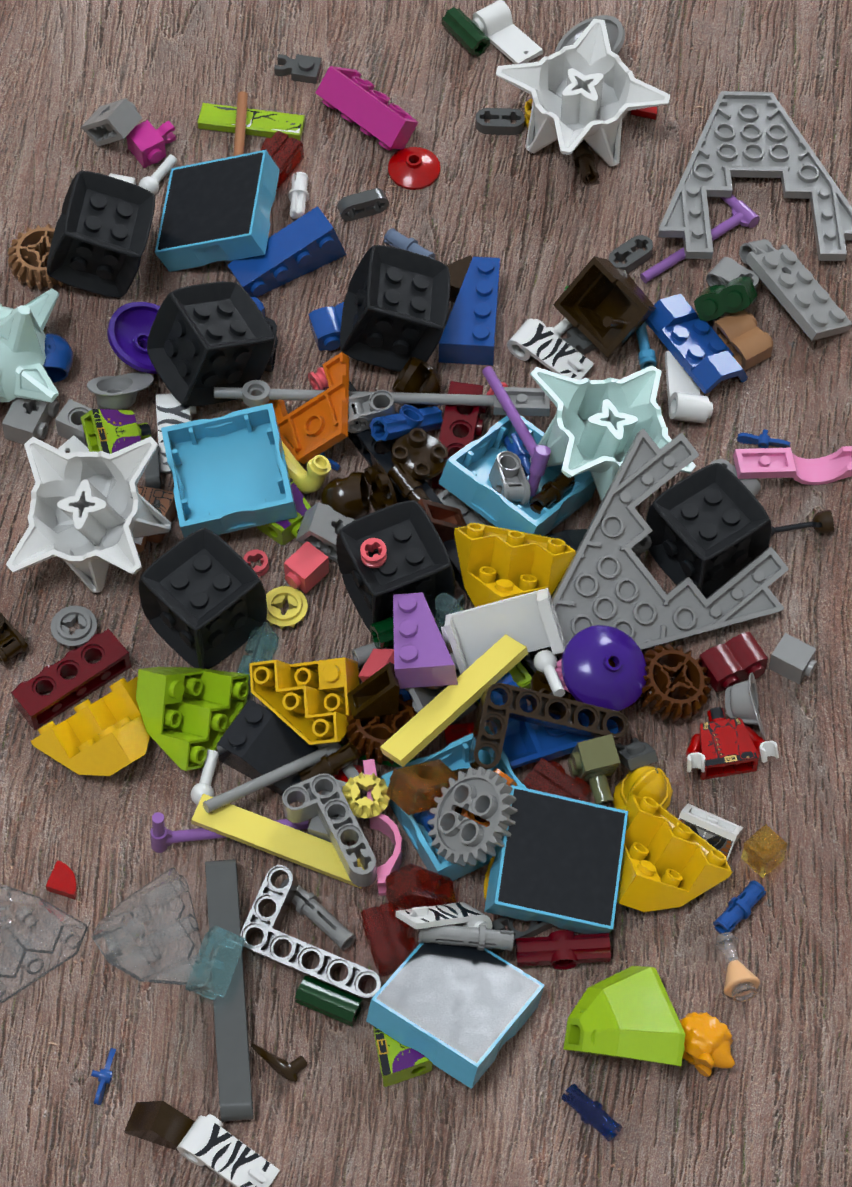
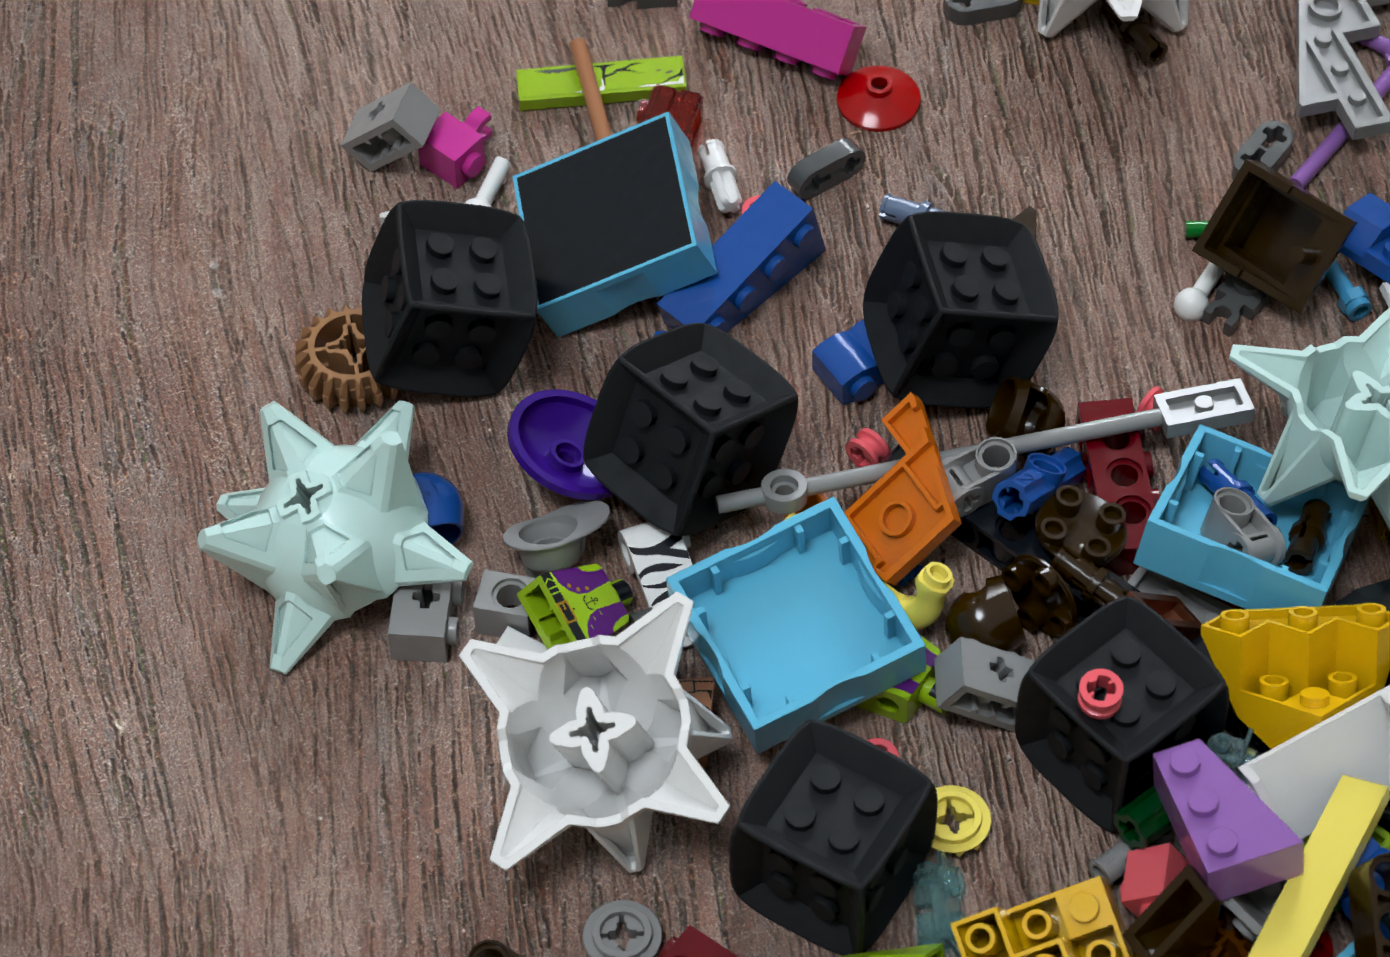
camera: 15 degrees left, 5 degrees down
(306, 567) = (966, 748): coral brick -> none
(472, 322) = (1088, 323): blue wedge -> none
(539, 453) = (1282, 482): medium lavender bar -> none
(549, 349) = (1179, 311): white door -> none

